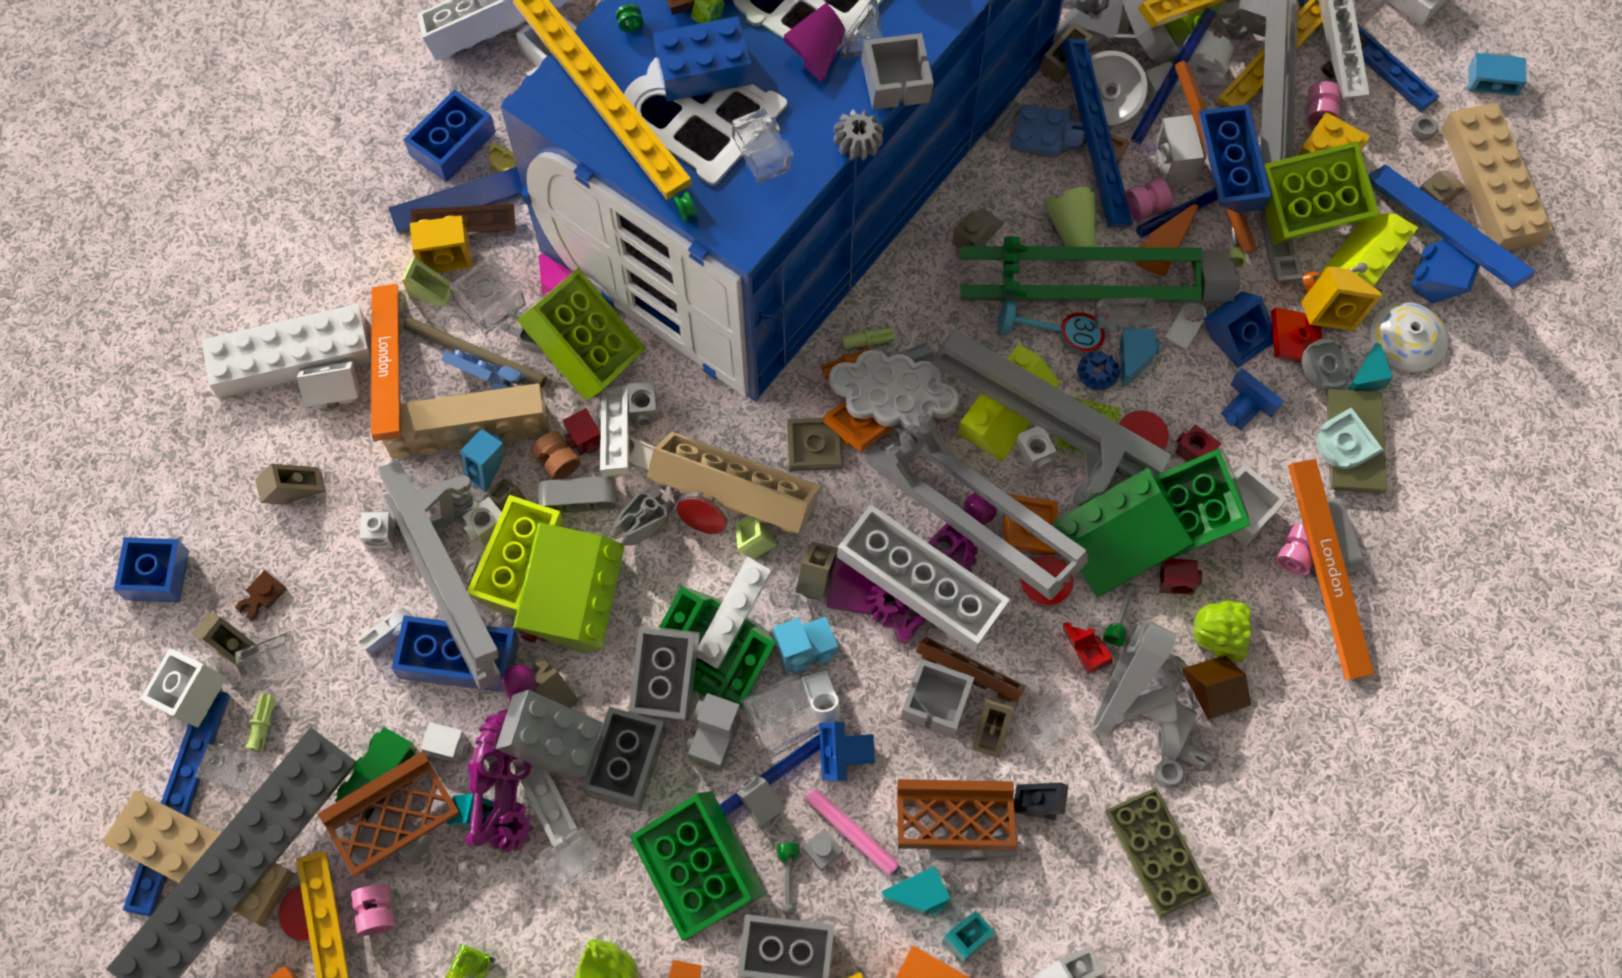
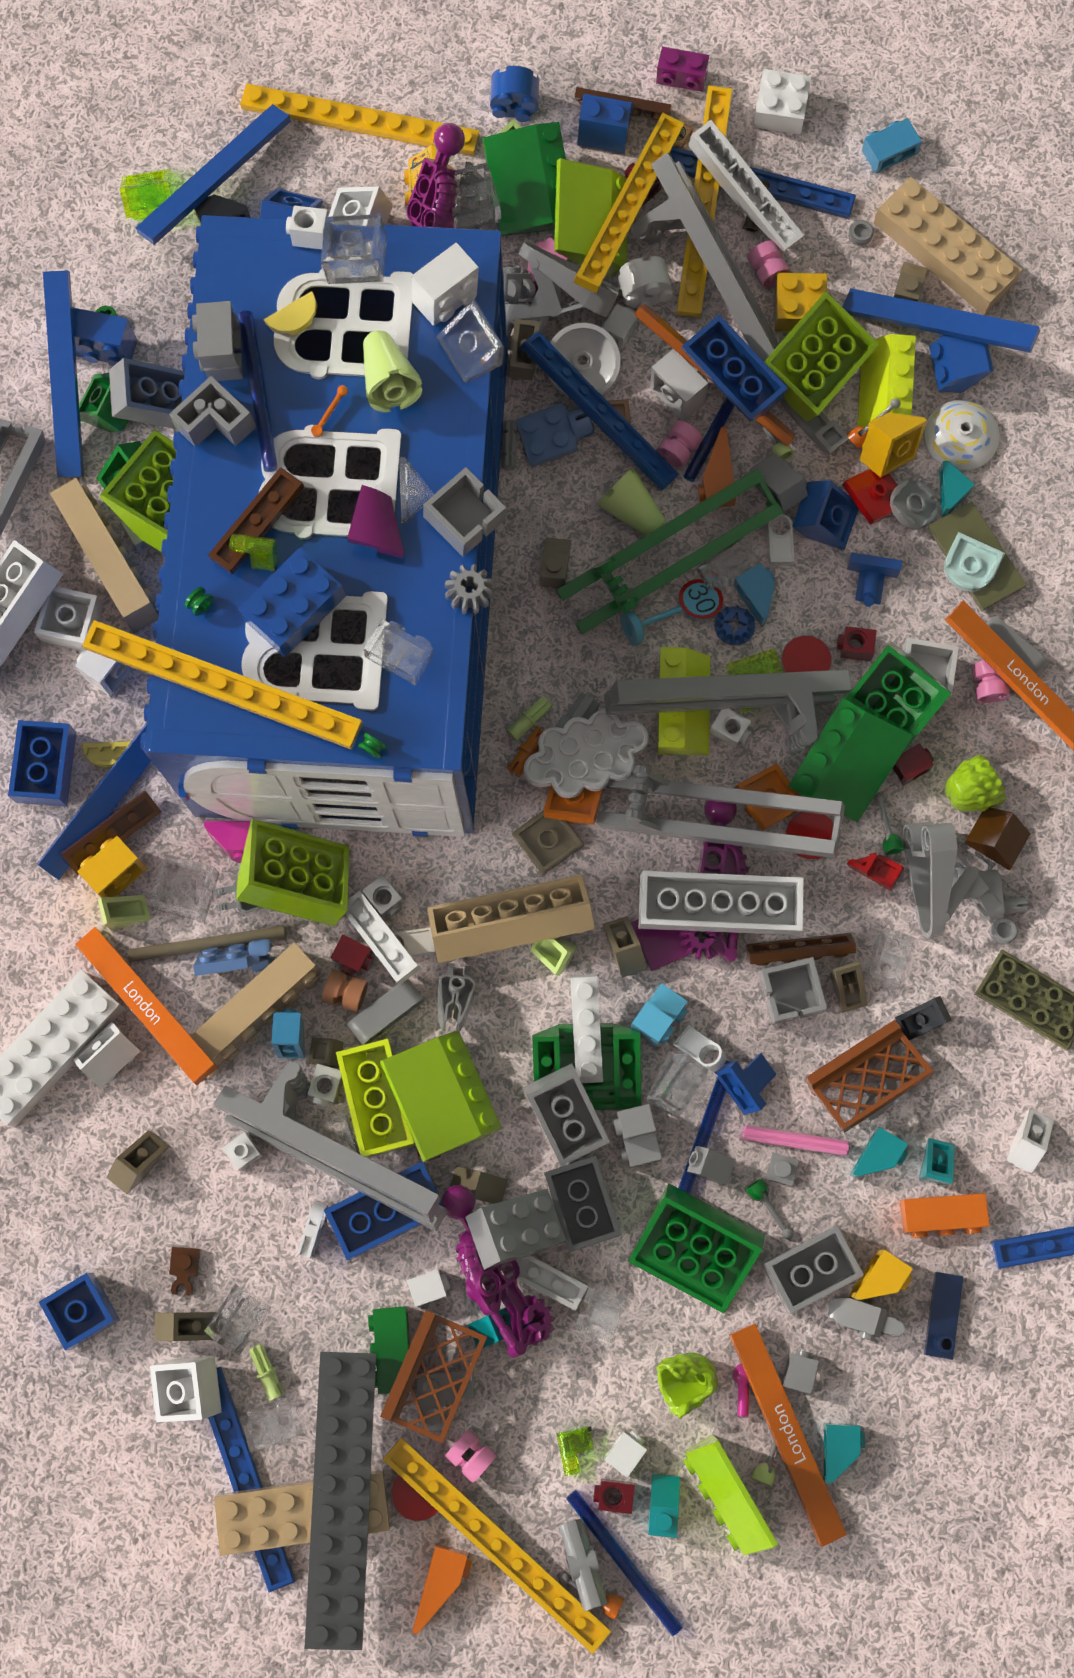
camera: 30 degrees left, 10 degrees up
(702, 513) = (502, 962): red tile -> none
(1172, 76) = (631, 320): clear blue piece -> none

